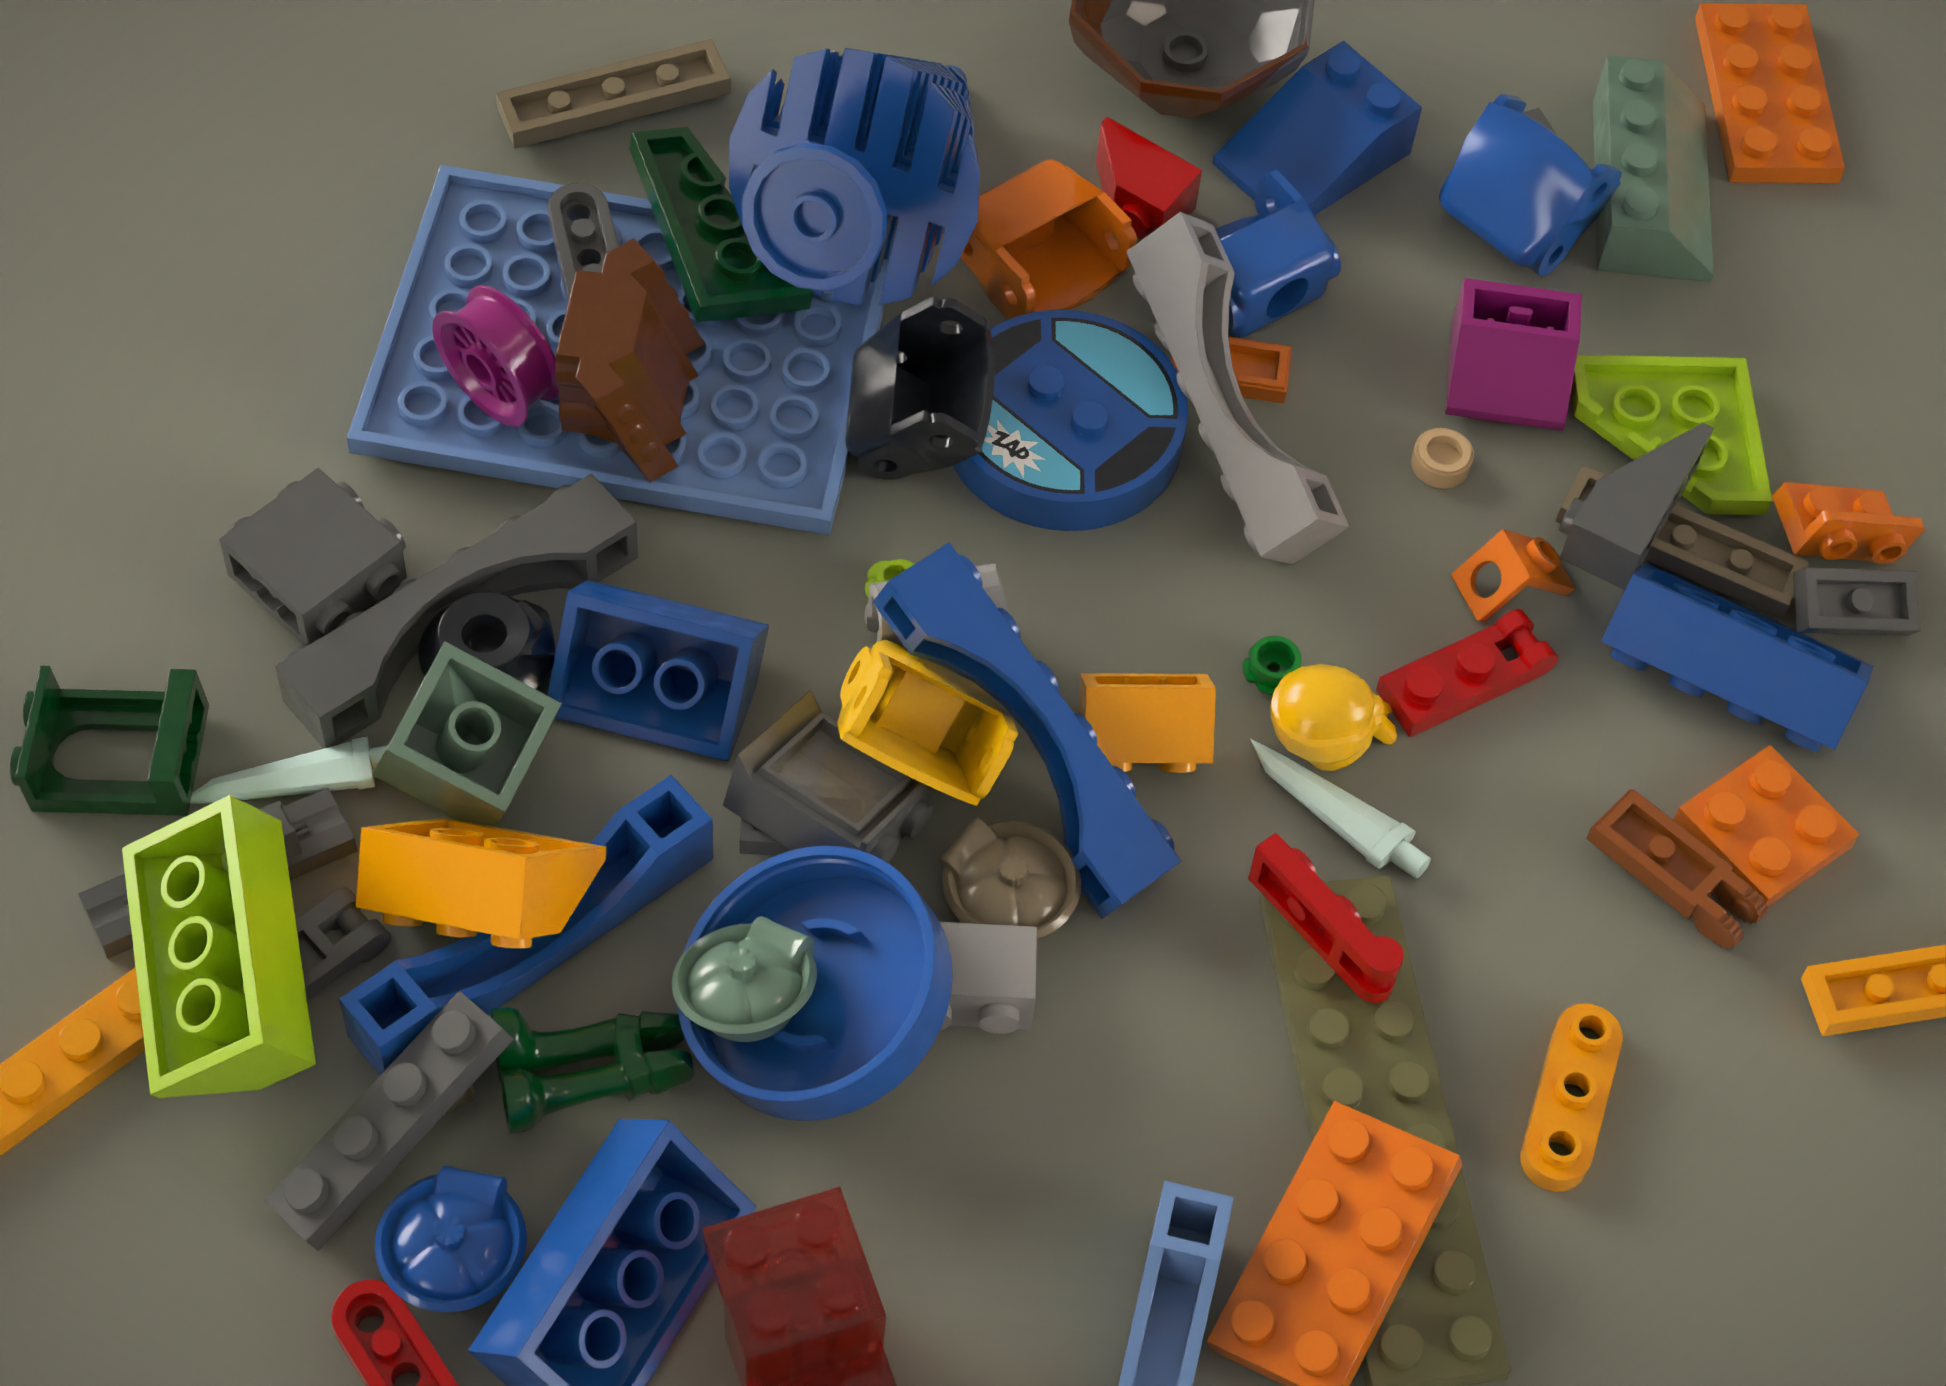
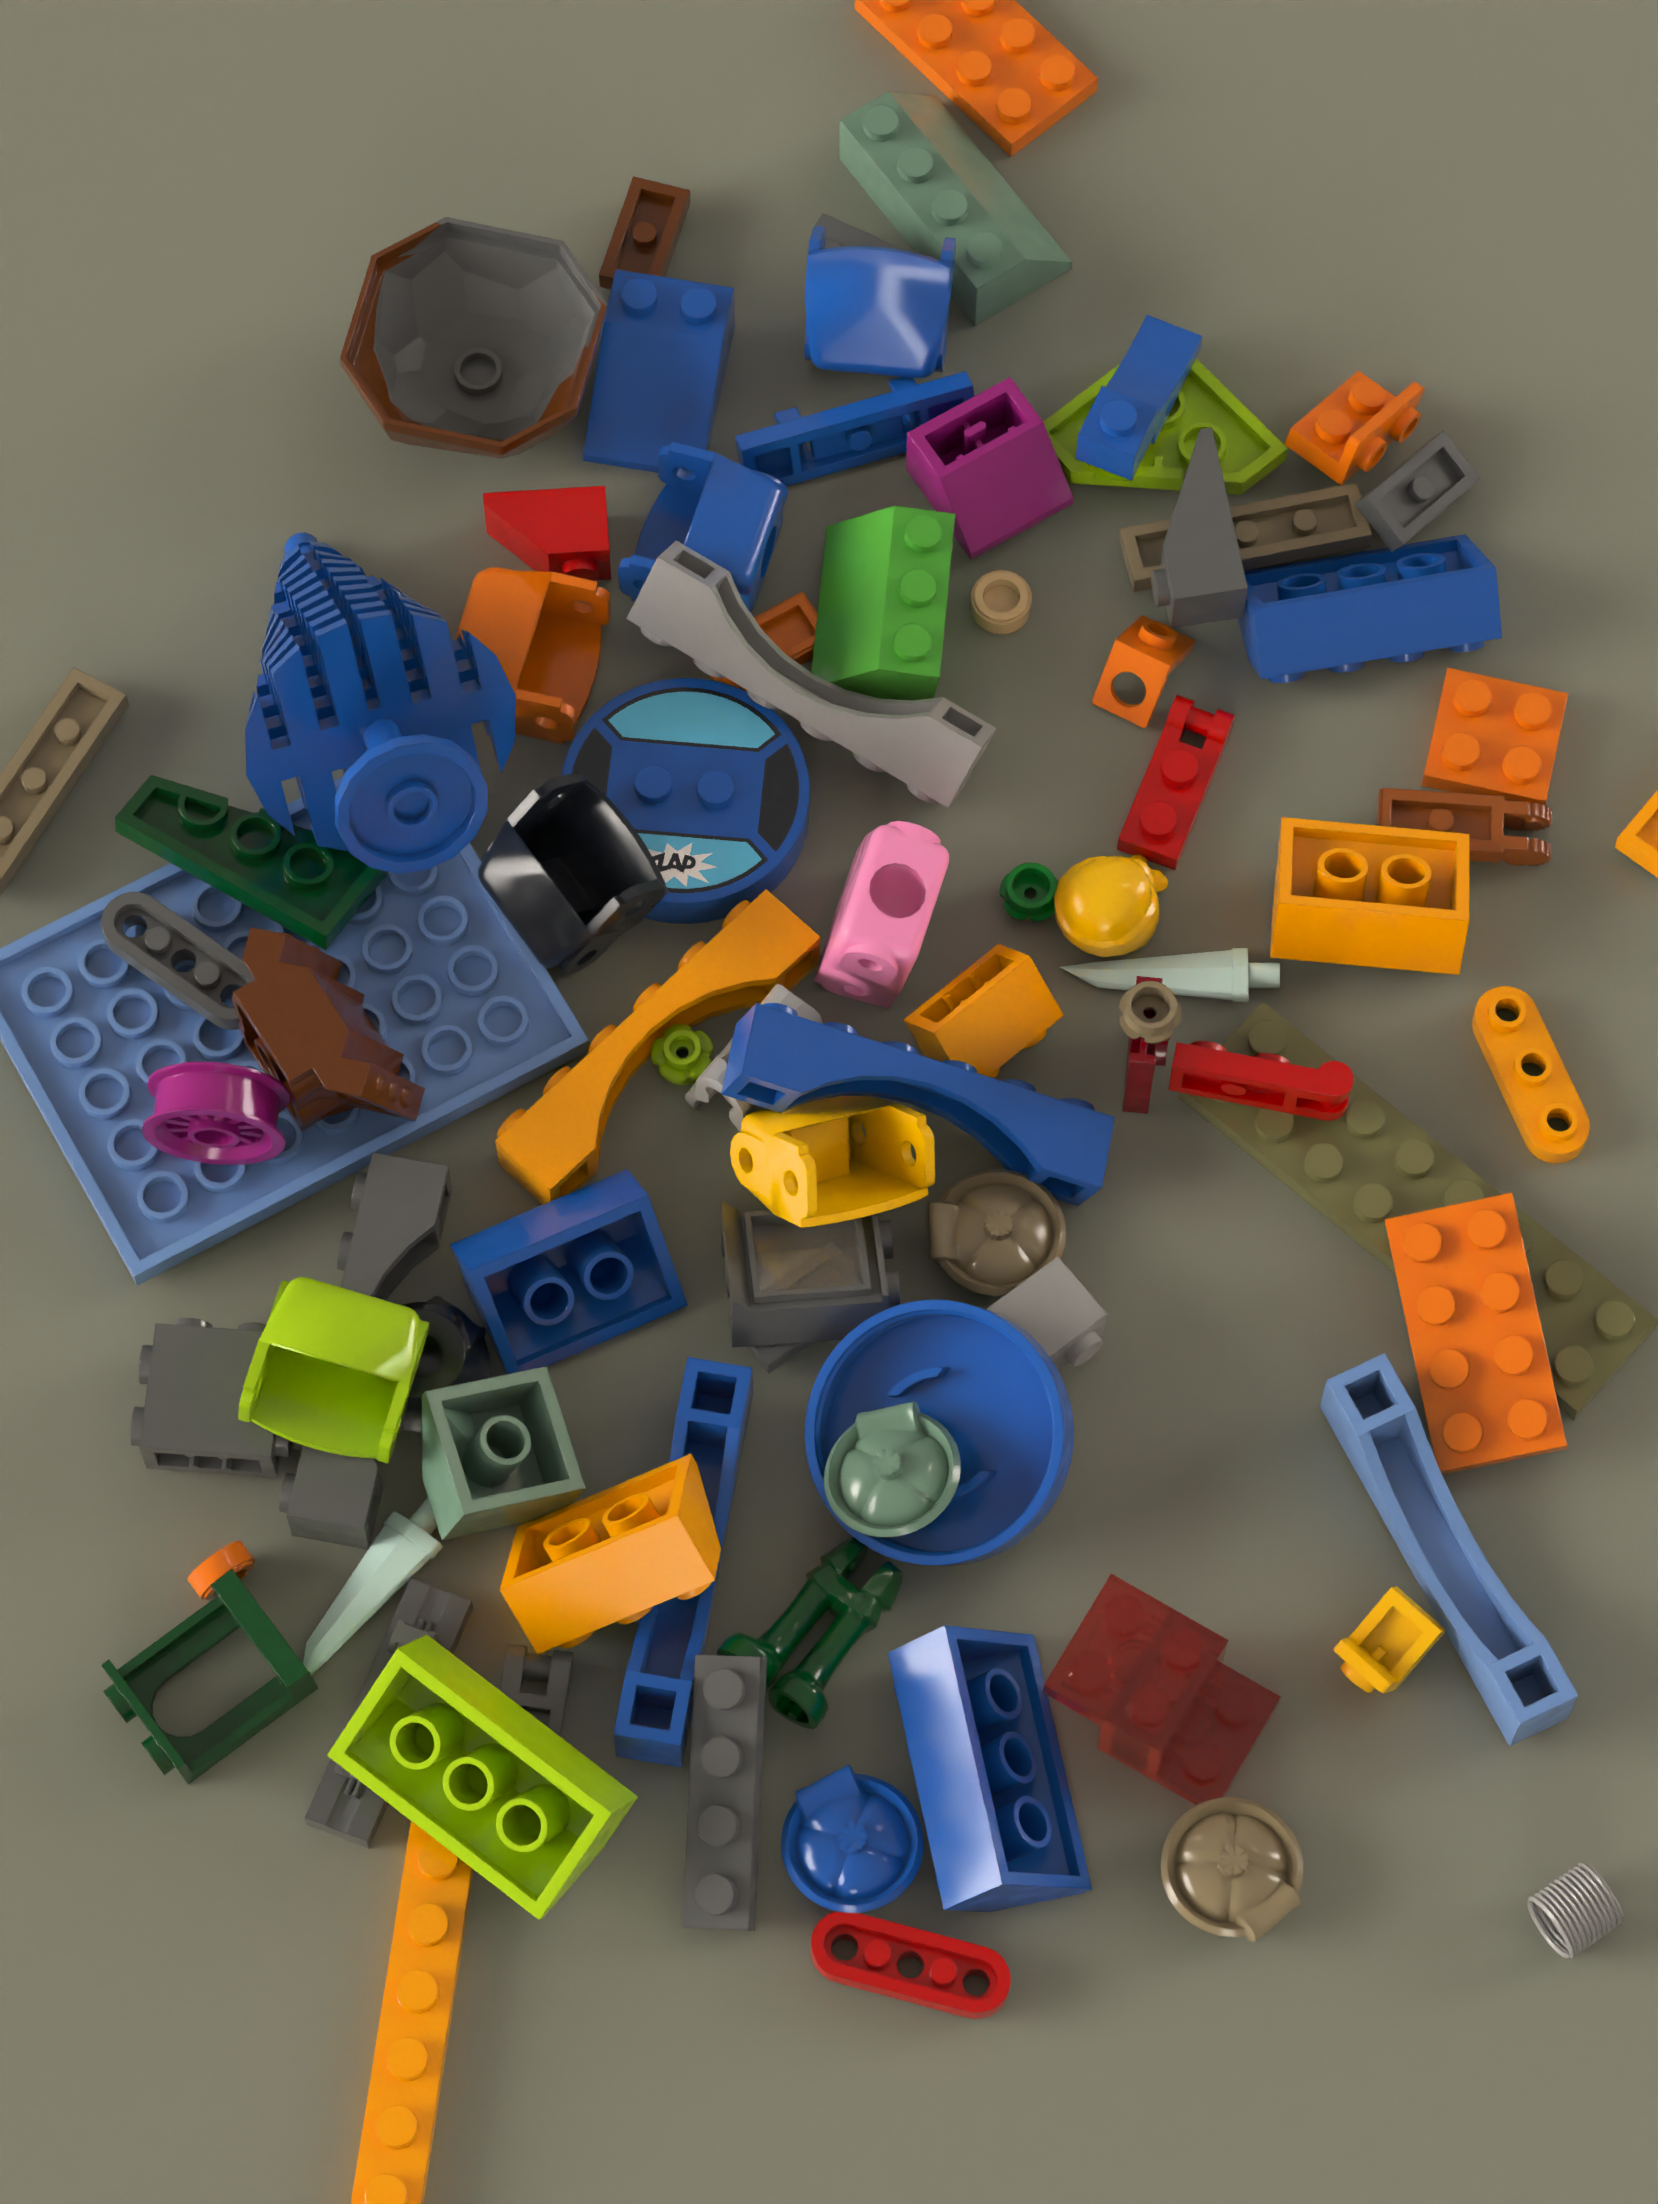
camera: 35 degrees left, 10 degrees up
(214, 673) = (232, 1556): none -> orange tile
(398, 581) = (334, 1369): none -> lime piece
(763, 566) = (559, 1138): none -> light orange arch
(1133, 582) = (883, 913): none -> bright pink piece
(1260, 812) = (1141, 1066): none -> dark red plate
(1266, 767) = (1157, 998): none -> dark tan plate
(1349, 392) = (884, 602): none -> bright green slope
(1404, 44) = (646, 230): none -> reddish brown plate
(1414, 261) = (849, 433): none -> blue hinge
(1548, 858) = (1371, 896): none -> light orange slope
(1673, 381) = (1137, 398): none -> blue slope

